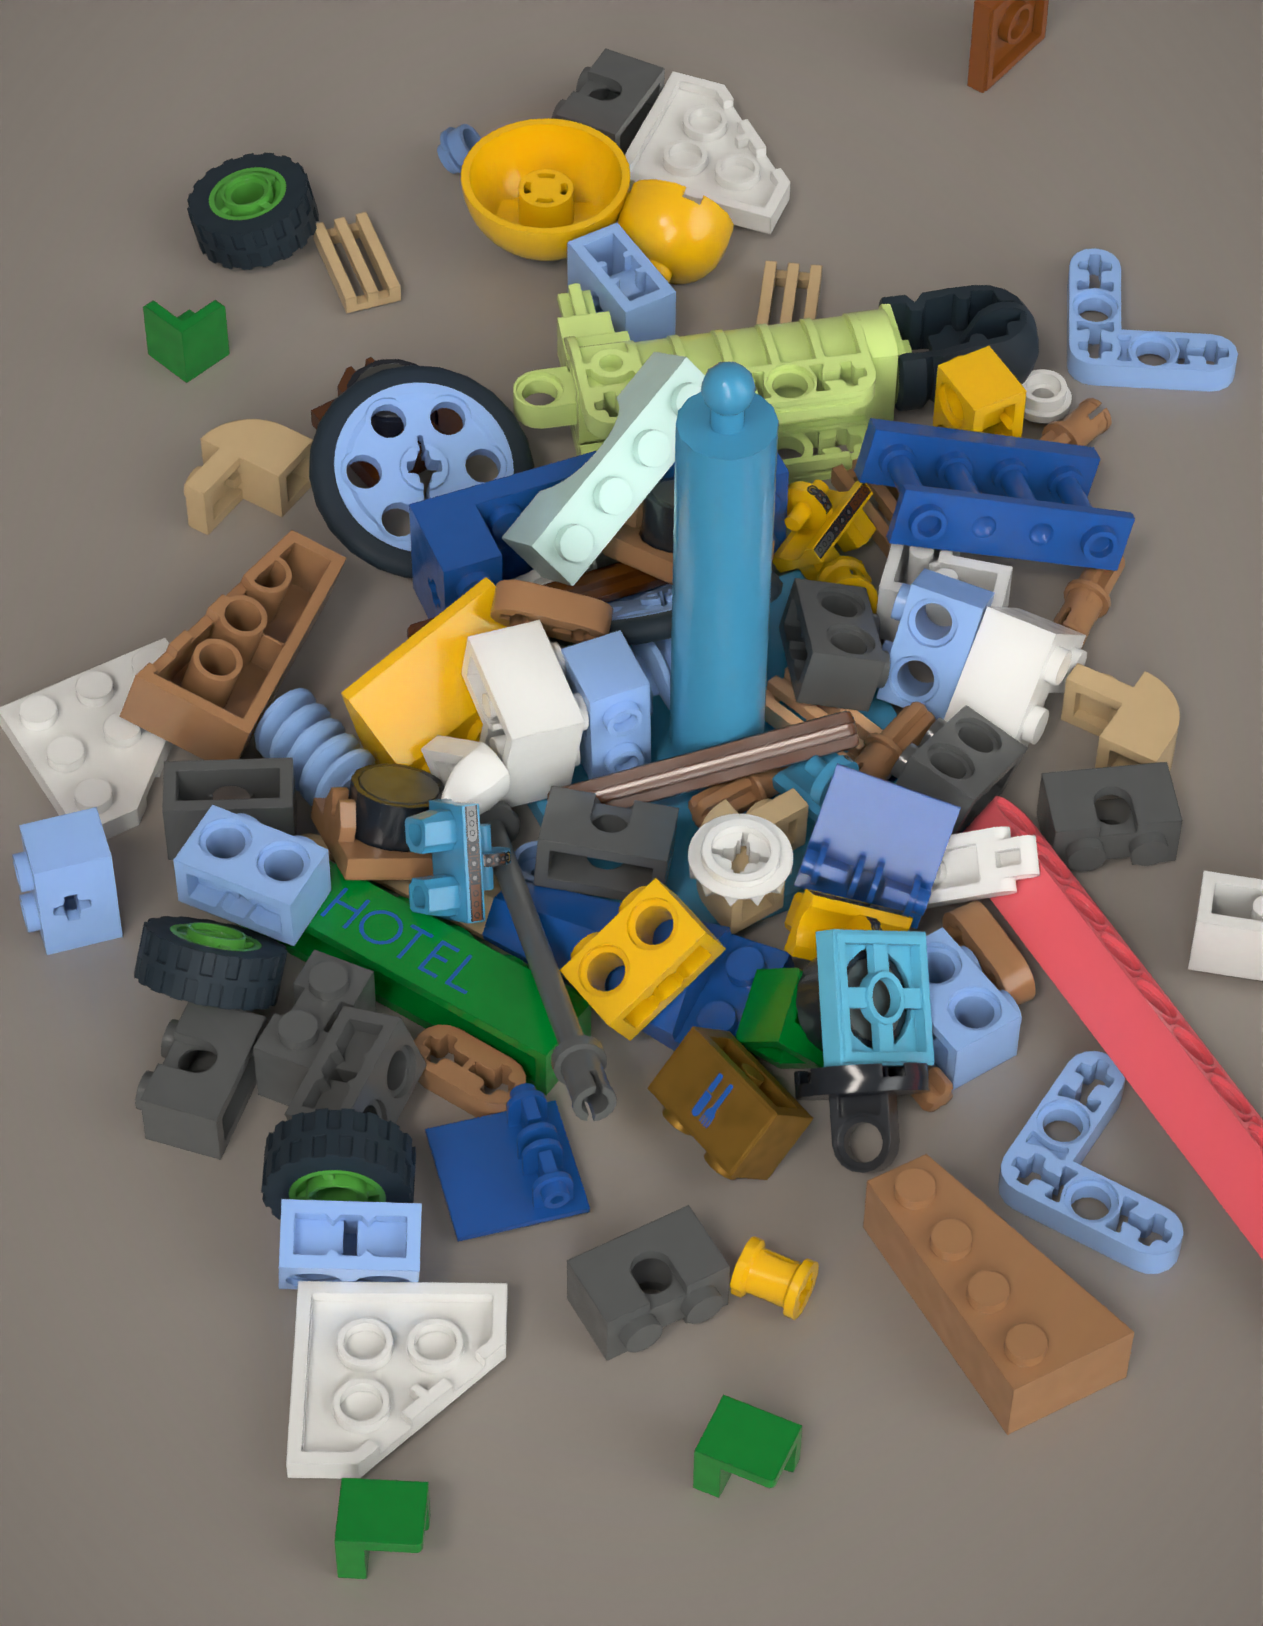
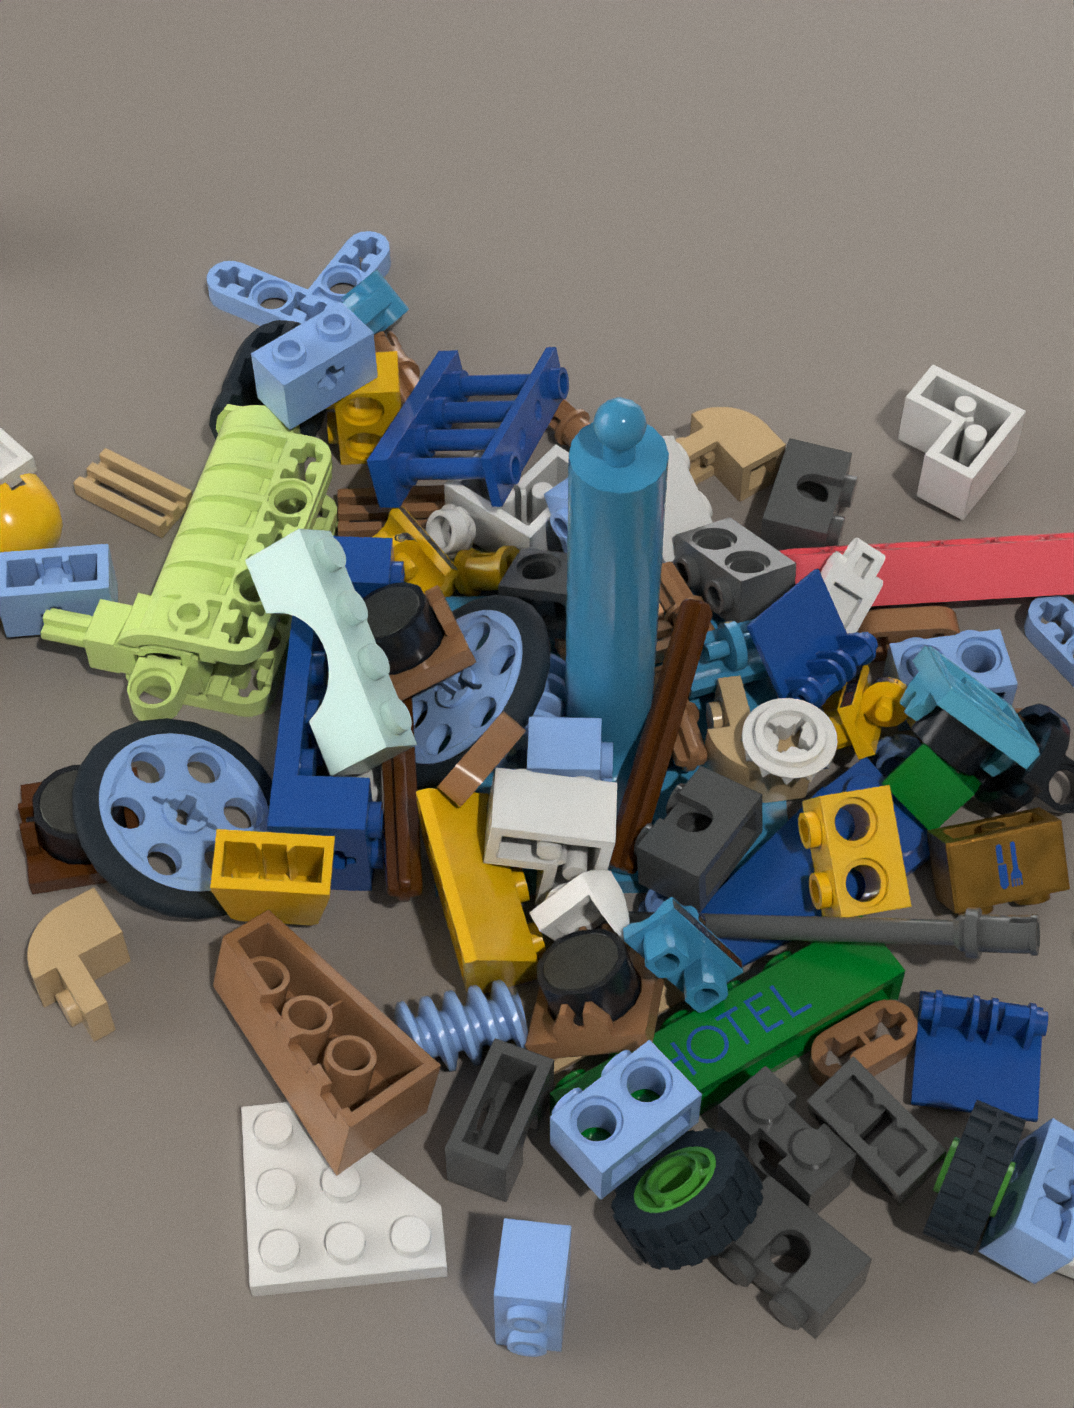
camera: 65 degrees left, 5 degrees up
(384, 560) = (272, 873): none -> yellow torso
(868, 540) = (451, 529): none -> white plate
(941, 324) = (315, 365): none -> light blue brick
(1120, 378) = (375, 302): none -> dark azure piece

